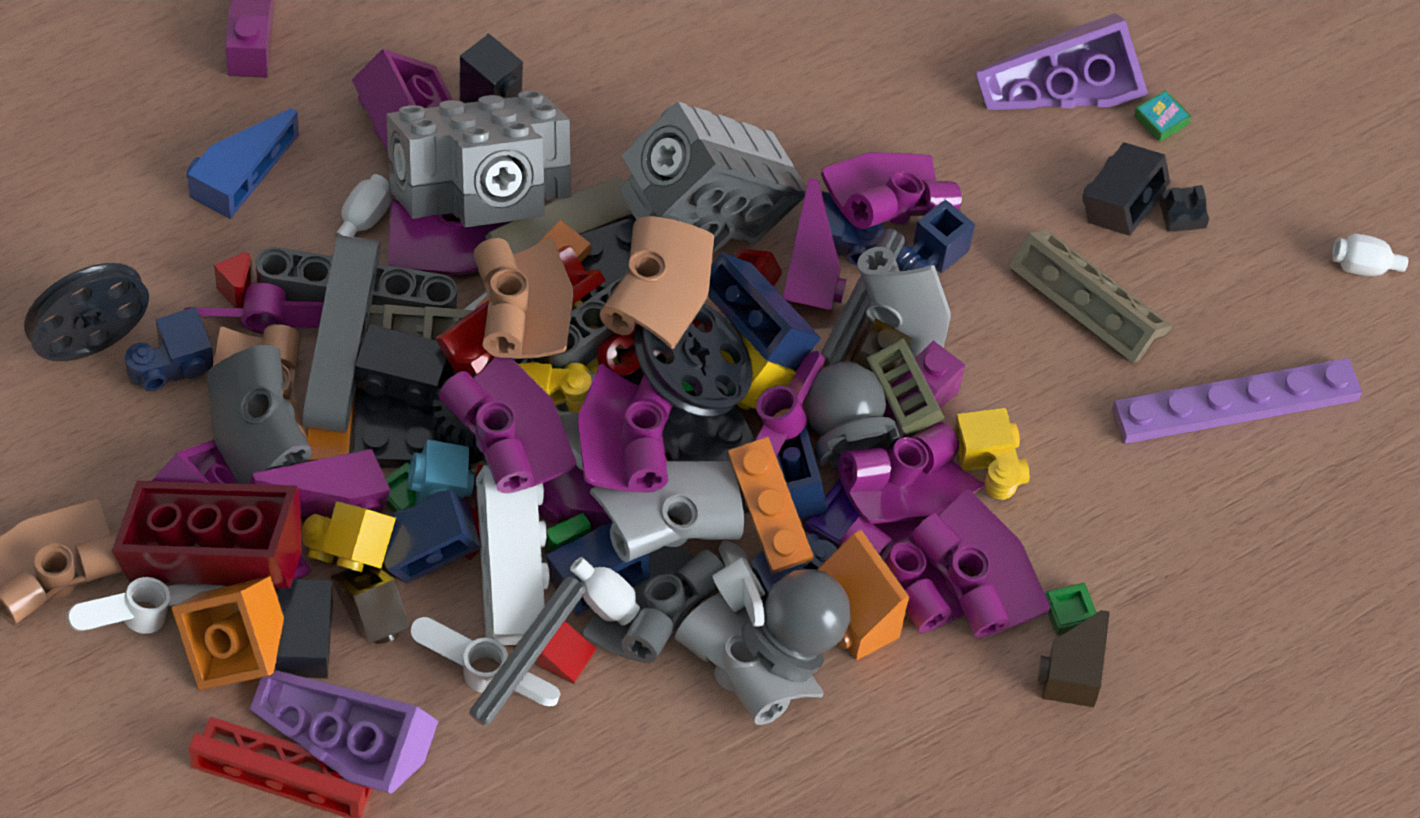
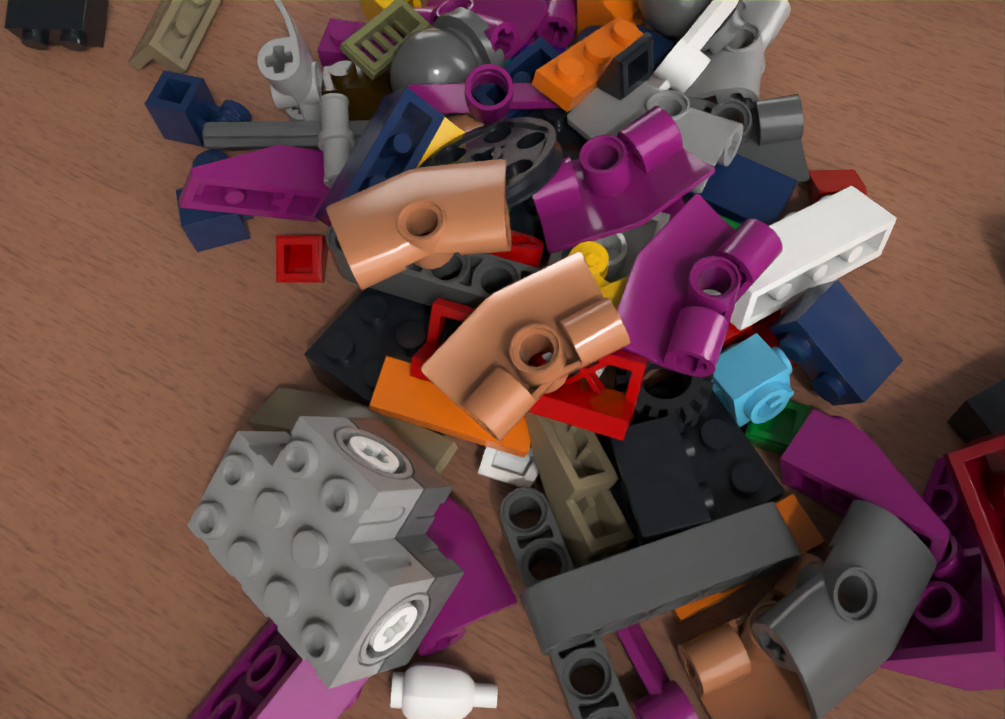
camera: 105 degrees left, 5 degrees up
(351, 534) = (908, 410): yellow brick -> none
(371, 603) = (935, 372): dark brown slope -> none
(465, 651) = (913, 257): white piece -> none
(489, 70) = (180, 624): black brick -> none
(527, 651) = (889, 182): dark grey axle -> none
(606, 592) = (771, 156): white plant -> none
(711, 175) = (244, 285): piece -> none
(729, 500) = (628, 68): none -> black slope
(826, 313) = (336, 138): none -> light grey pin
(887, 187) = (152, 165): magenta panel -> none

